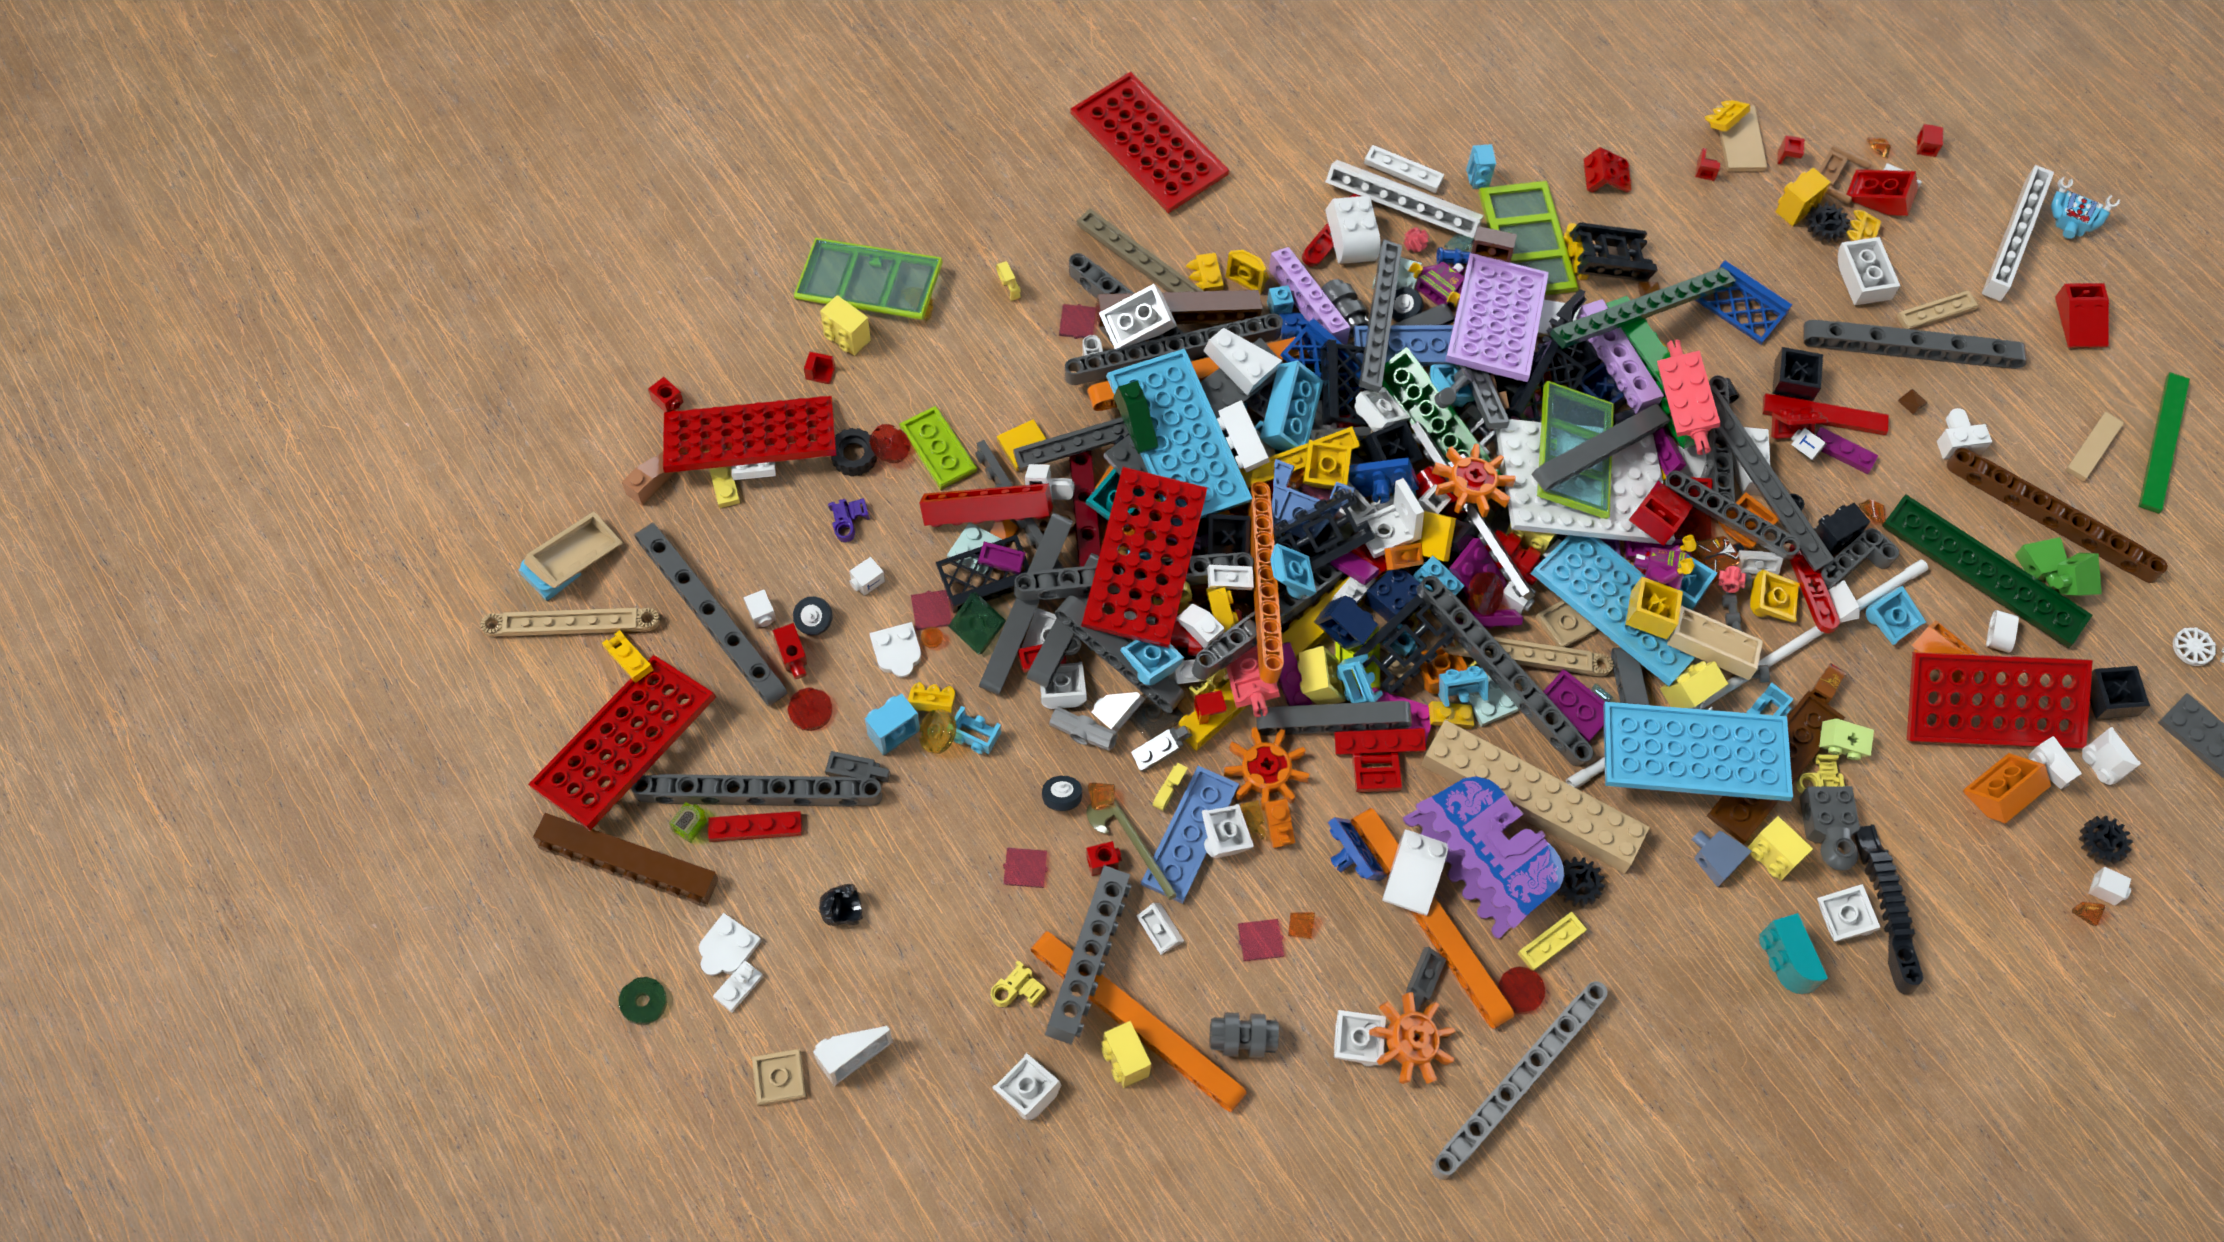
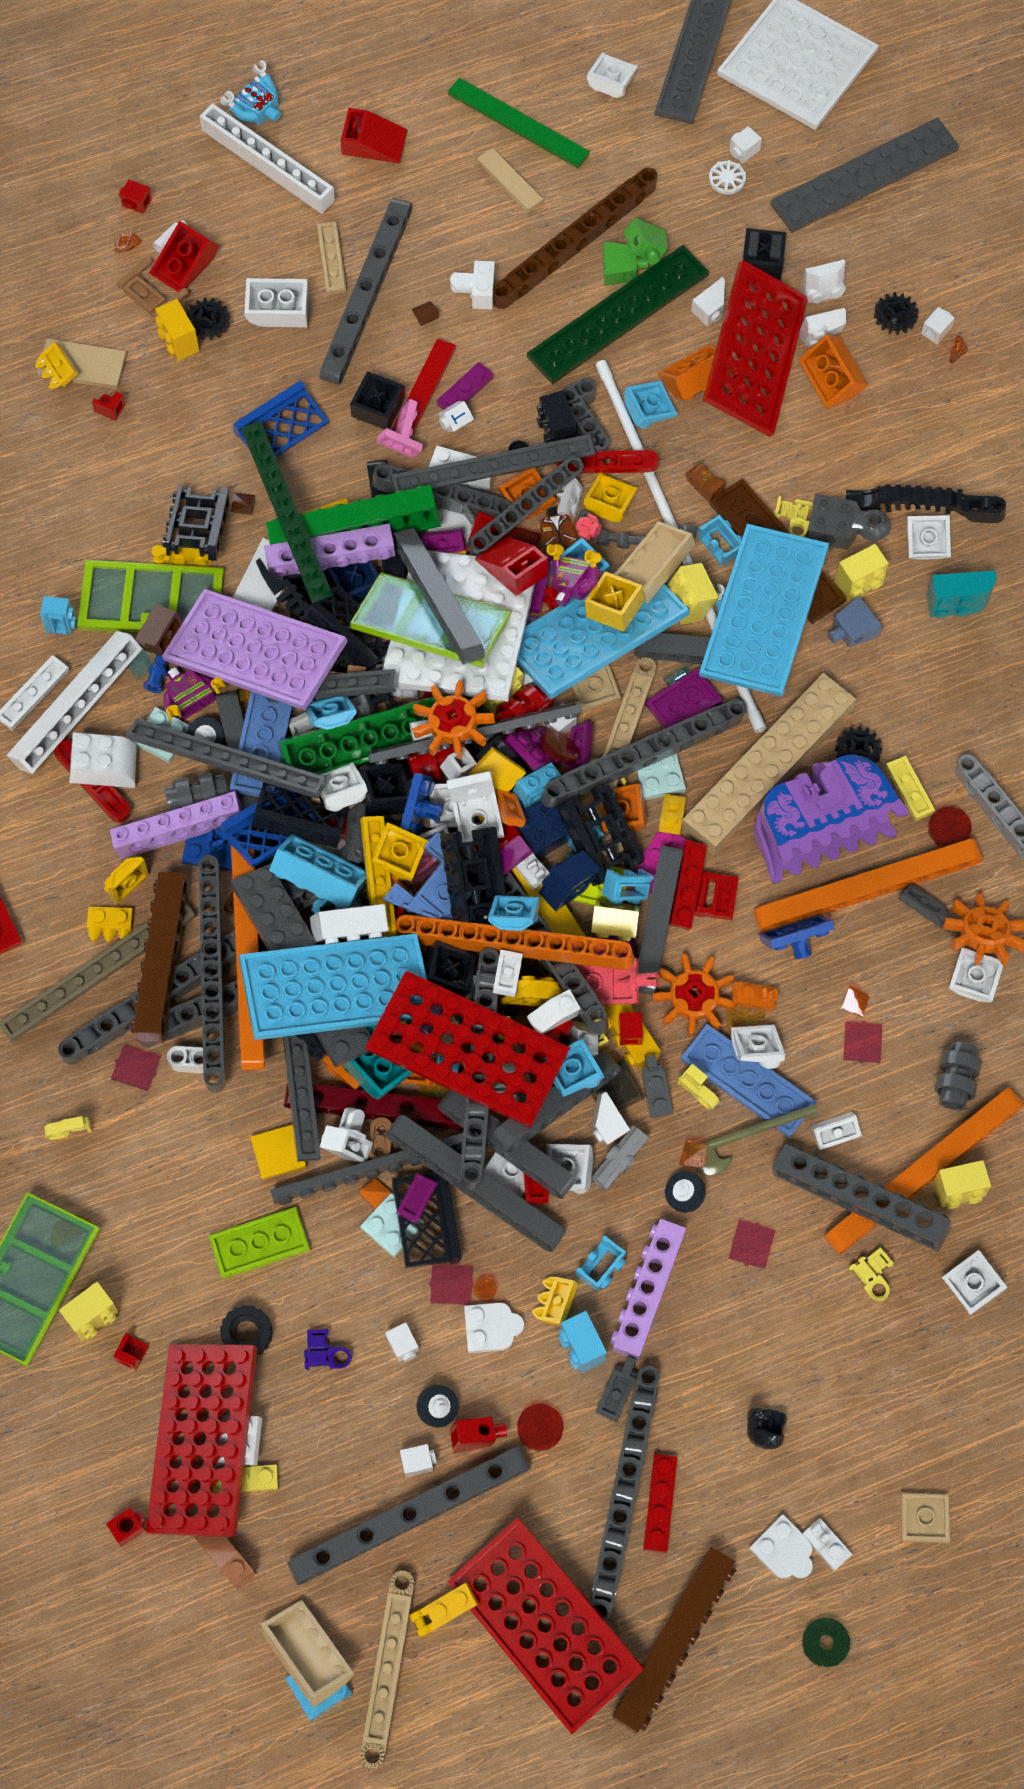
camera: 75 degrees left, 5 degrees up
(688, 821) = (645, 1569): brick -> none
(848, 1052) = (920, 1444): white slope -> none
(889, 443) = (247, 1291): clear red tile -> none
(937, 731) = (598, 1298): clear yellow tile -> none
(967, 786) = (673, 1236): none -> lavender brick
(977, 623) = (484, 1238): clear green plate -> none
(986, 505) = (354, 1200): red brick -> none
(1093, 853) = (756, 1176): red brick -> none
(1136, 416) = (313, 1019): dark green slope -> none
(1138, 318) = (177, 997): white slope -> none
(1241, 360) = (263, 903): white wedge -> none
(1280, 300) = (169, 855): medium azure brick -> none
(1415, 872) = (832, 884): white slope -> none
(1416, 239) = (127, 704): coral gear -> none
(1448, 395) = (356, 717): dark grey bar -> none
(1463, 683) = (648, 792): medium azure window -> none
(1606, 167) = (90, 500): red bracket -> none
(1688, 395) = (404, 499): coral plate -> none
(1762, 401) = (400, 438): none -> bright pink bracket
(1788, 422) = (432, 417): red bracket -> none
(1791, 147) = (113, 322): red panel -> none
(1844, 602) = (629, 440): white slope -> none
(1846, 738) = (766, 484): yellowish green brick -> none
(1864, 227) = (226, 288): yellow plate -> none
(1873, 510) = (535, 385): clear orange slope -> none
(2002, 631) = (682, 322): white beam -> none
(2037, 647) = (710, 303): none -> white slope

